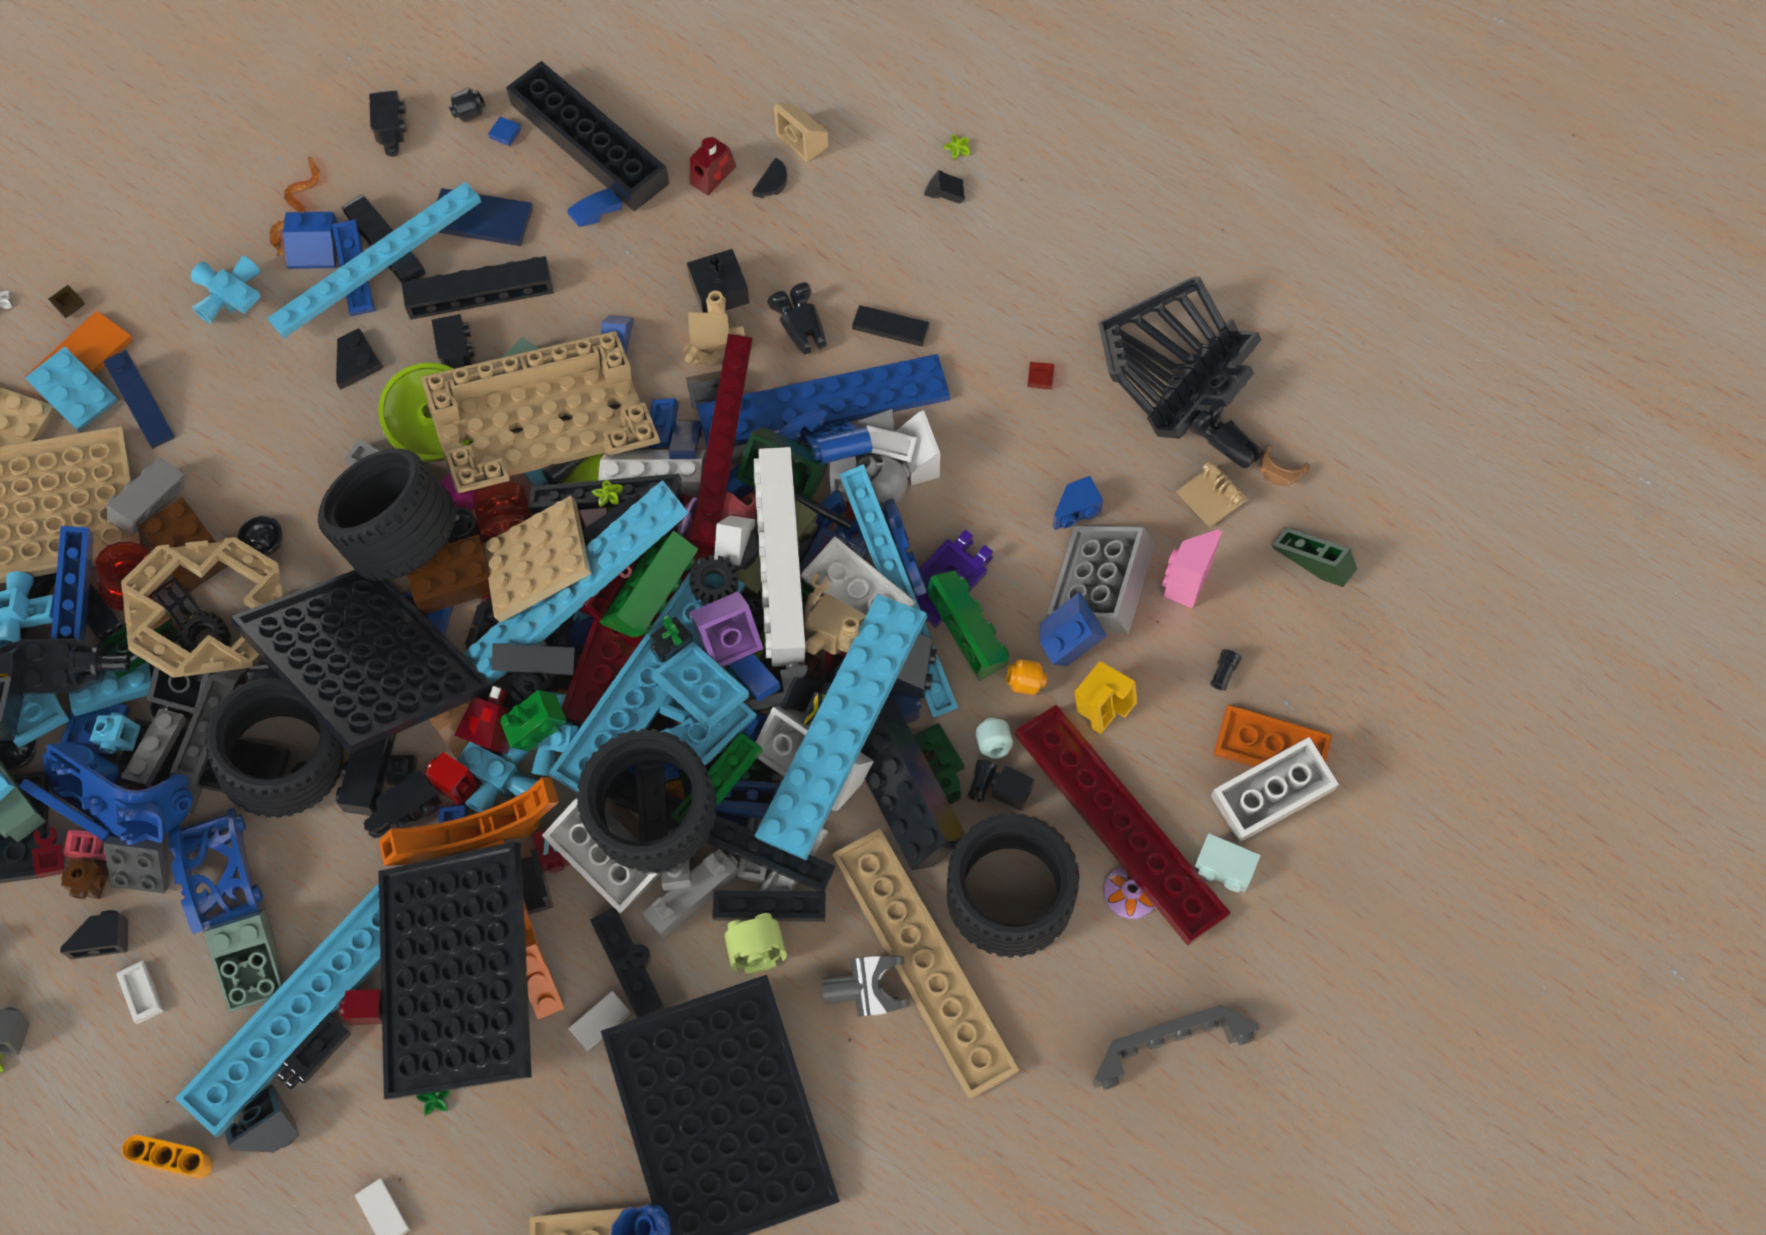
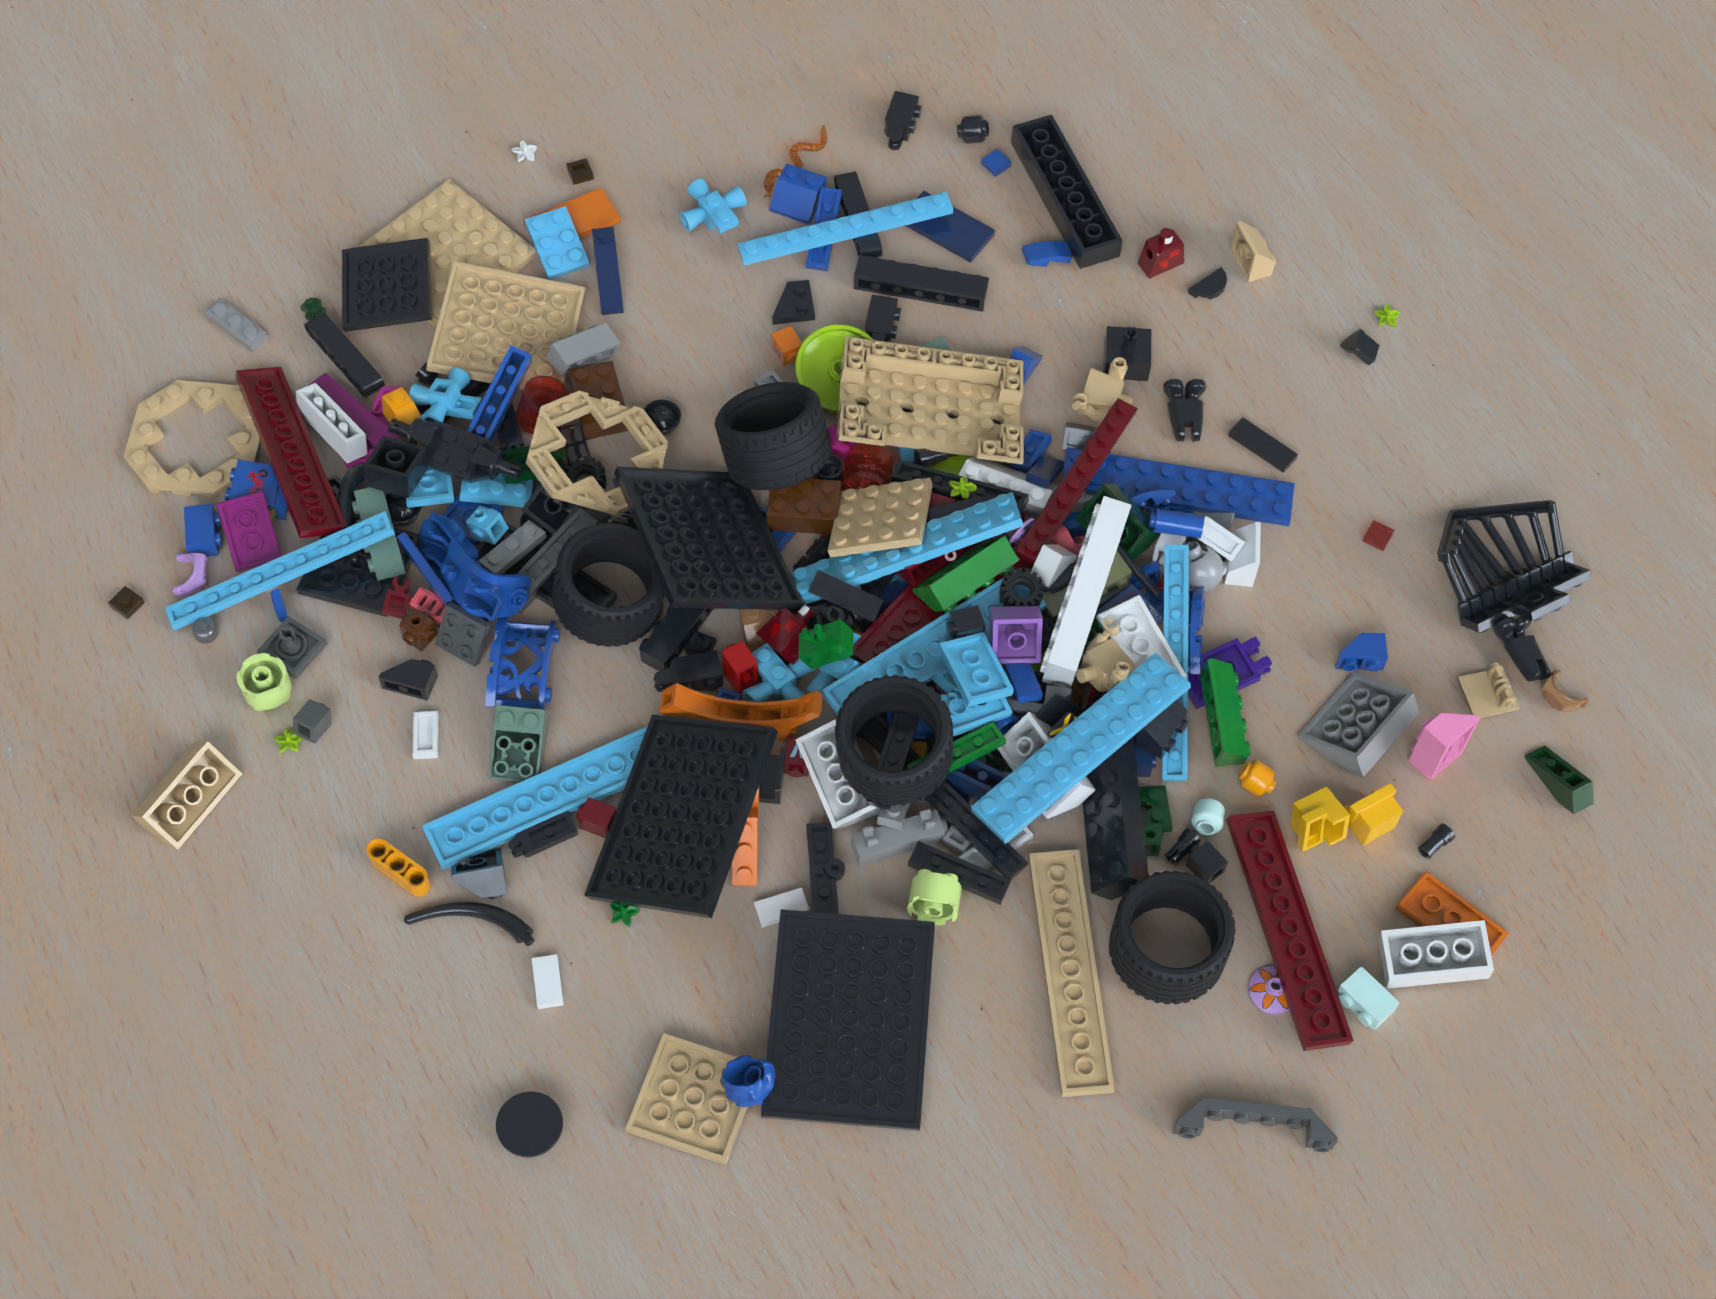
camera: 20 degrees right, 5 degrees down
(301, 1163) = (506, 920): none -> black animal
(362, 407) = (786, 345): none -> orange brick
(671, 631) = (970, 615): green plant -> none
(865, 986) = (1013, 969): dark grey connector -> none
(1070, 631) = (1311, 755): blue slope -> none
(1155, 667) = (1374, 814): none -> yellow plate

